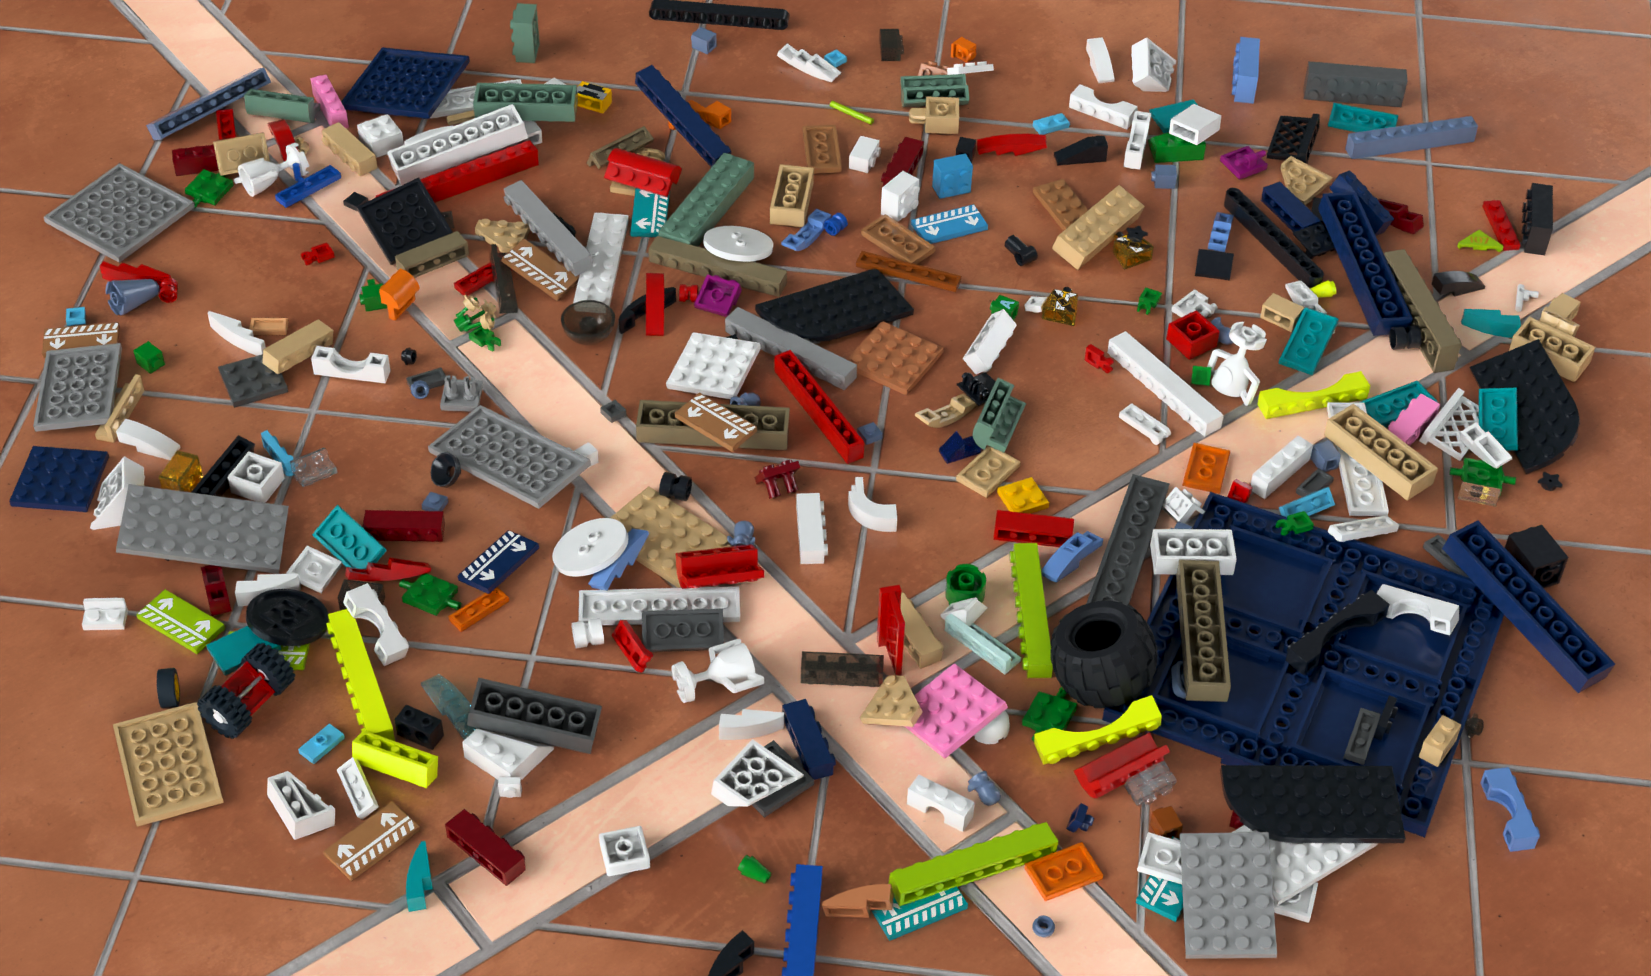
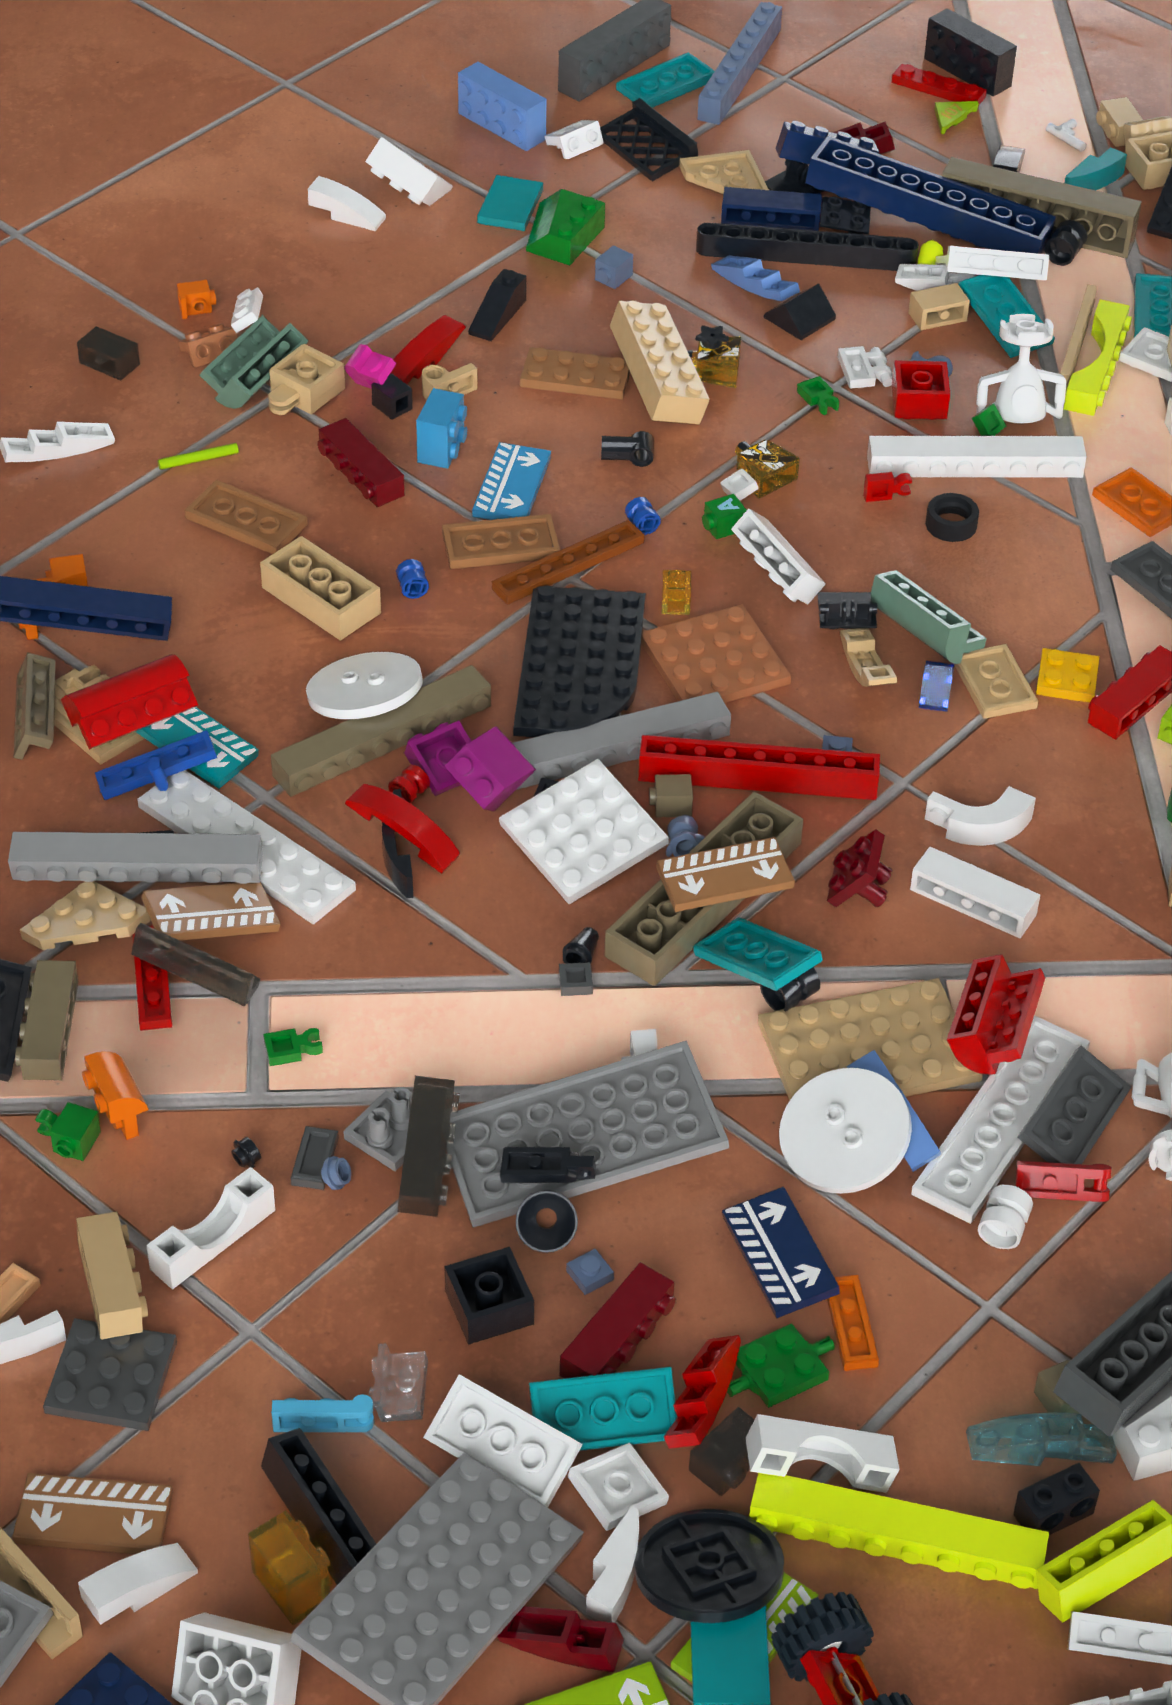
camera: 55 degrees left, 0 degrees up
(175, 412) = (92, 1514): none -> medium nougat tile
(256, 477) = (367, 1463): white brick -> none
(305, 516) = (503, 1439): none -> white plate
(321, 743) = (995, 1647): medium azure plate -> none
(384, 471) = (489, 1295): none -> black brick
(453, 406) = (426, 1146): none -> clear smoke brick
(471, 450) = (545, 1165): none -> black hinge
(486, 316) = (234, 1013): plant -> none
(588, 322) = (385, 910): clear smoke piece -> none
(614, 204) = (156, 765): none -> blue plate
(631, 403) = (581, 947): none -> black cone
(681, 463) = (757, 953): none -> teal tile
(709, 200) = (243, 672): sand green brick -> none
(714, 310) = (490, 768): none -> magenta slope
(742, 534) = (936, 963): sand blue animal -> none
(771, 386) = (672, 795): none -> dark tan brick
(808, 232) = (399, 615): medium blue slope -> none
(835, 58) = (76, 412): medium azure plate -> none
(864, 154) = (302, 484): white brick -> none
(900, 196) = (432, 491): white brick -> none
(923, 318) = (676, 592): none -> clear yellow brick
(970, 128) = (368, 366): none -> dark pink brick
(972, 280) = (642, 515): none -> blue wheel
(994, 164) = (459, 381): none -> tan plate
(1051, 124) = (412, 305): medium azure plate -> none
(1102, 386) = (952, 530): none -> black tyre
(1119, 114) = (407, 255): white arch -> none
(1137, 140) = (511, 240): white arch -> none
(1145, 423) = (1028, 508): white plate -> none
(1195, 124) = (575, 187): white brick -> none
(1244, 162) = (651, 197): magenta plate -> none
(1262, 112) = (576, 138): none -> white bracket
(1321, 379) = (1079, 333): none -> tan tile
(1334, 313) = (995, 263): none -> white fence

